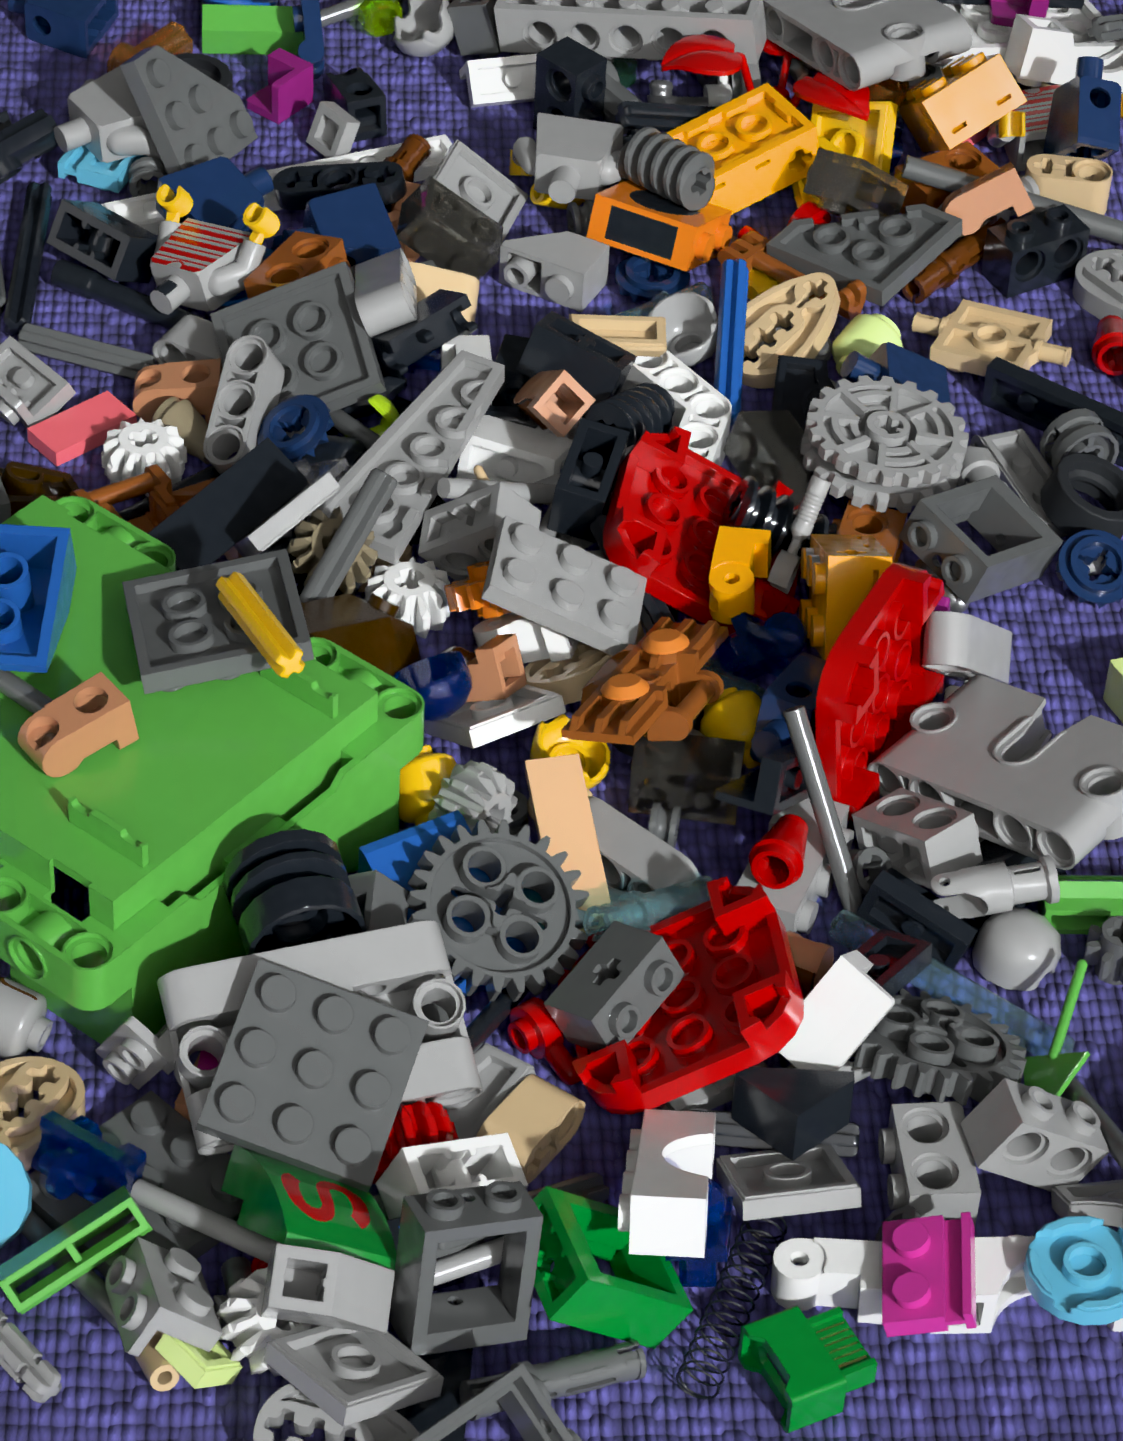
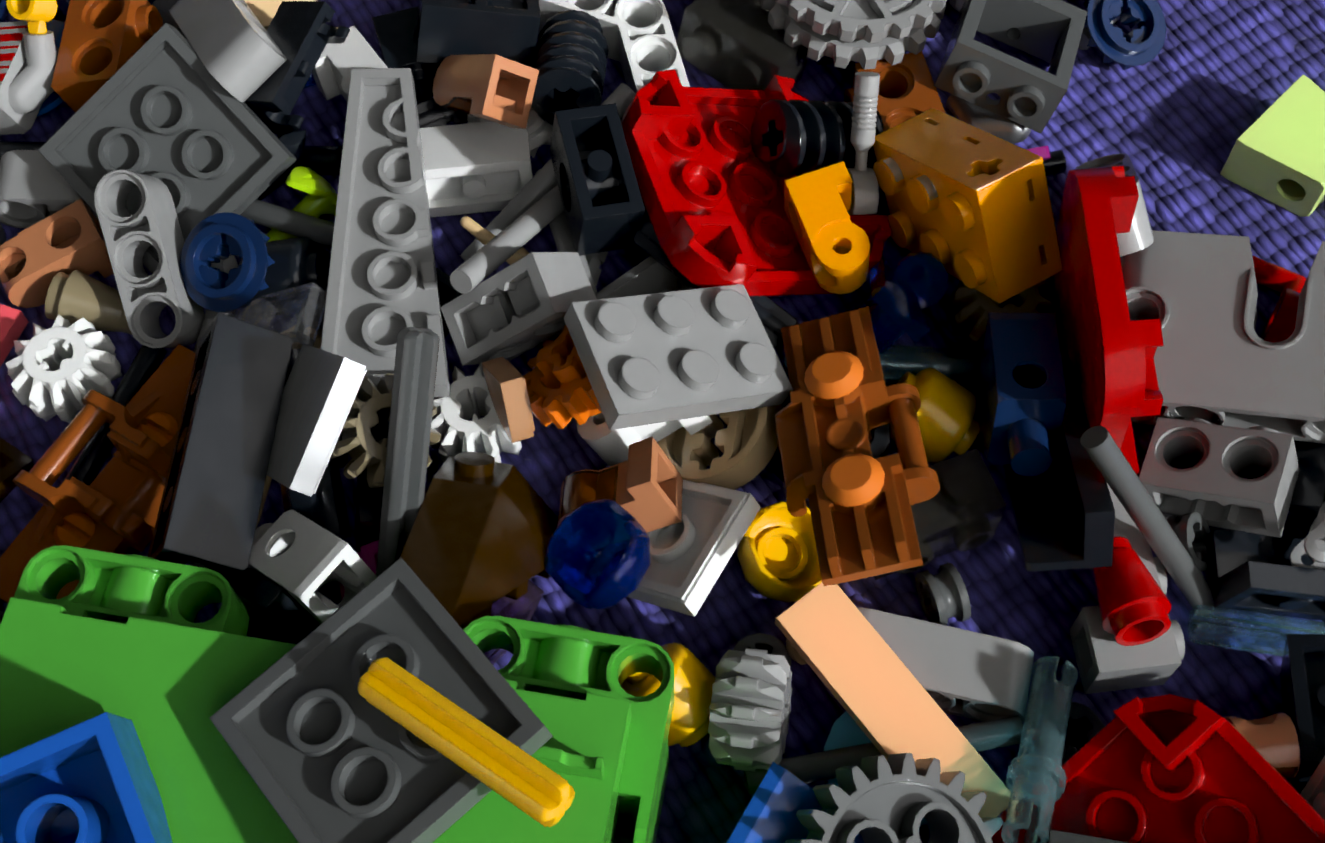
camera: 25 degrees left, 20 degrees up
(434, 579) = (509, 398): none -> medium nougat tile

